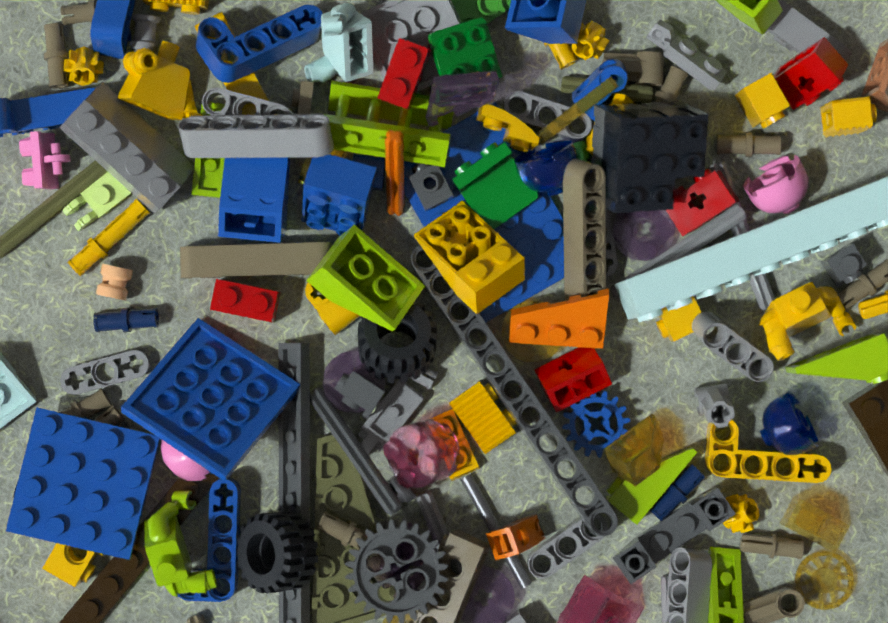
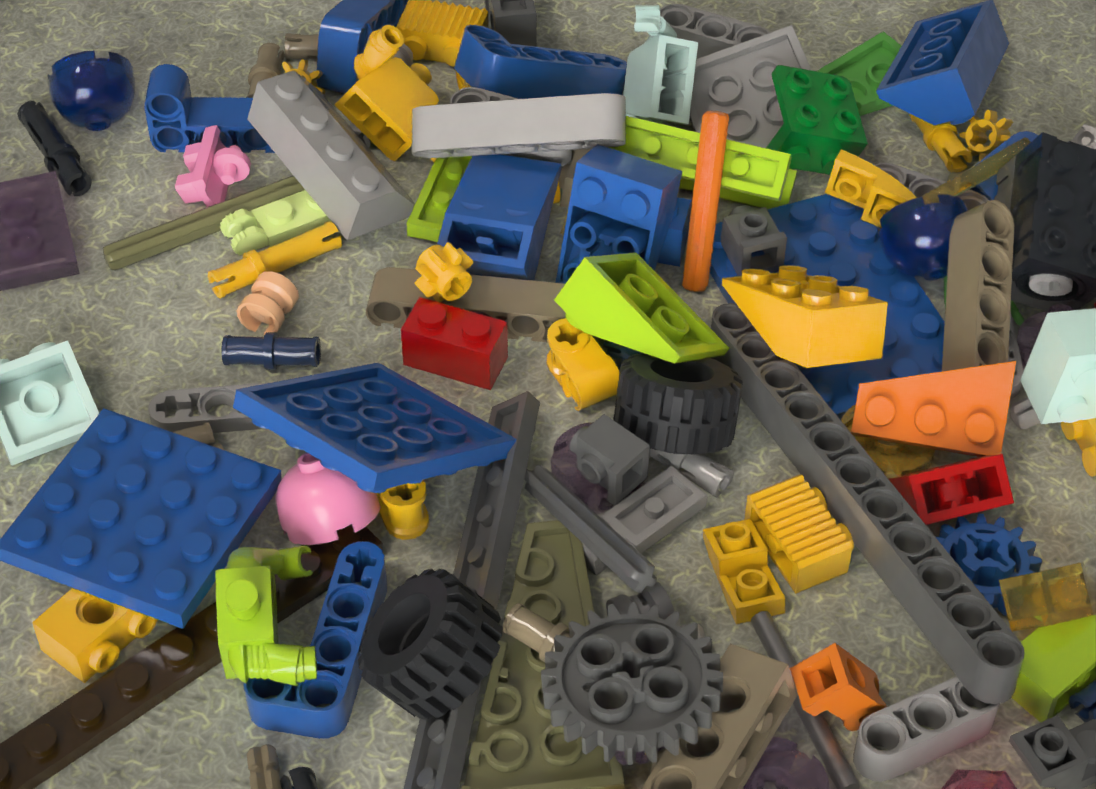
camera: 10 degrees right, 40 degrees down
(229, 263) = (444, 272): none -> yellow gear
(404, 73) = (743, 94): red brick -> none
(422, 453) = (697, 546): clear pink brick -> none
(460, 94) = (812, 121): clear purple wing -> none
(493, 186) = (839, 240): green bracket -> none

